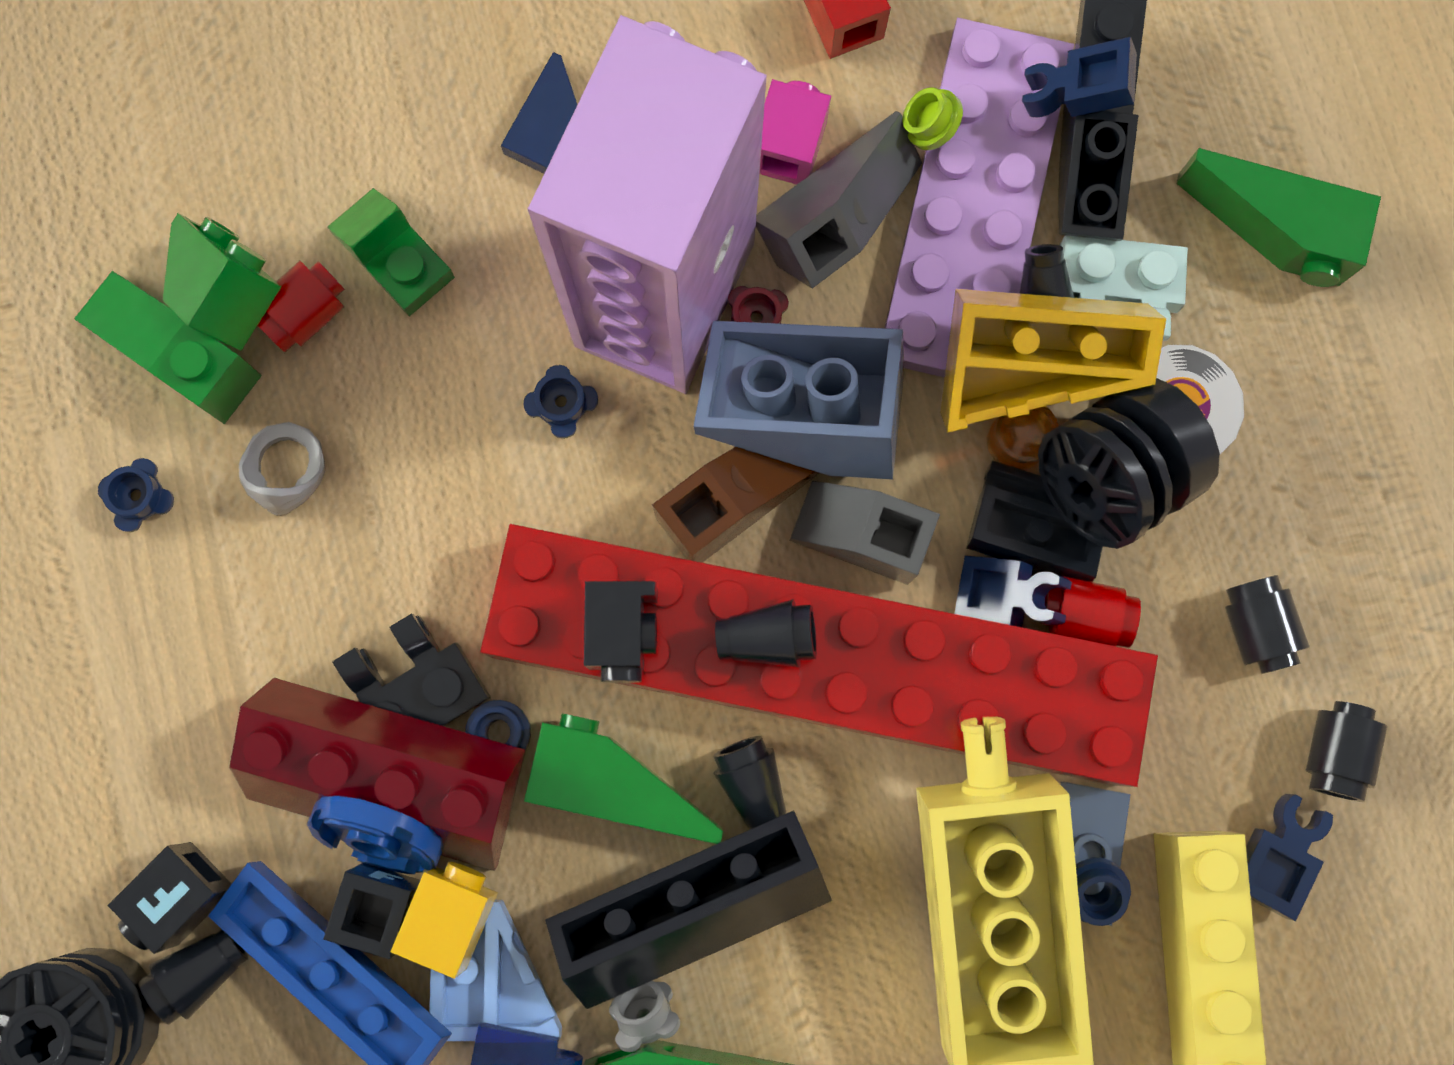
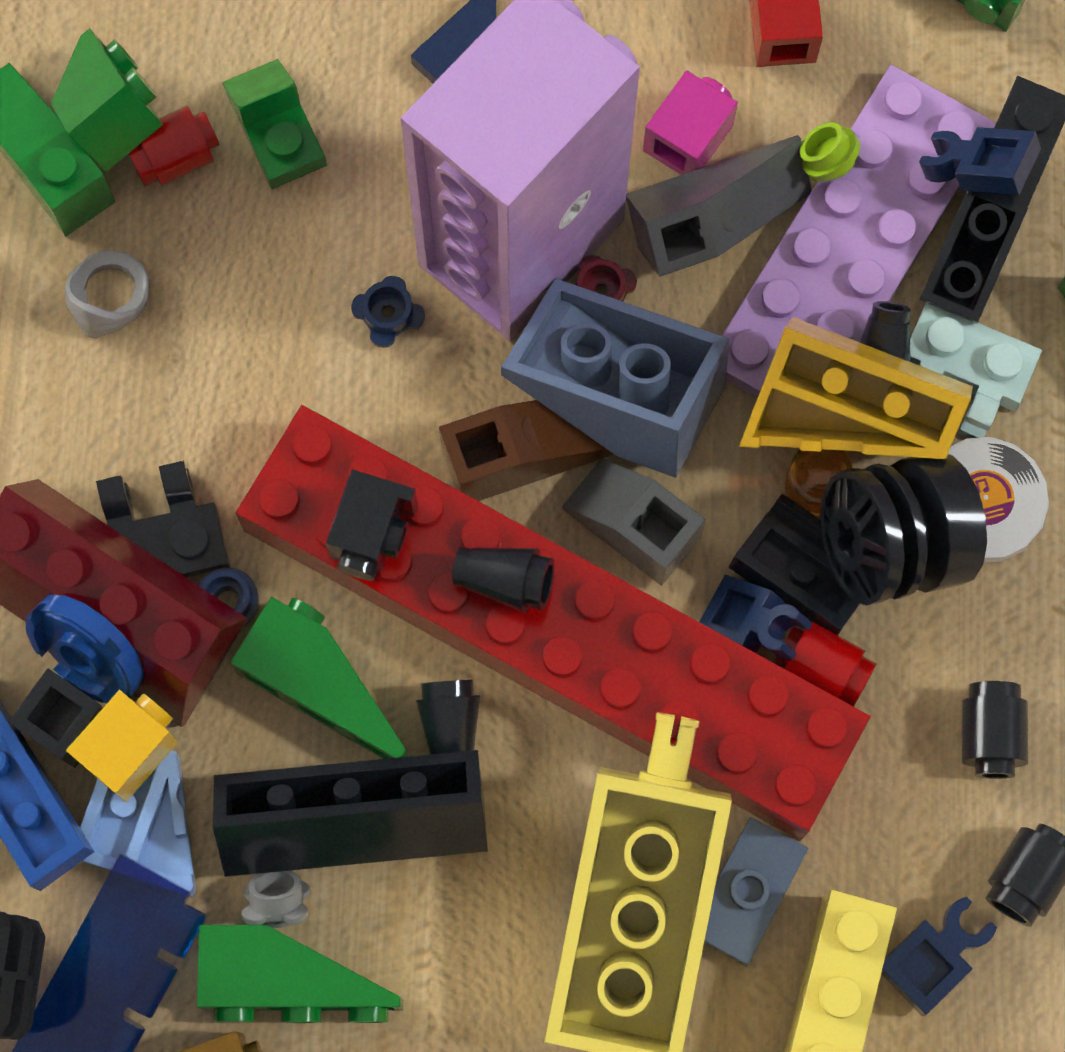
camera: 20 degrees right, 5 degrees down
(1111, 901) = (735, 939): dark blue plate -> none

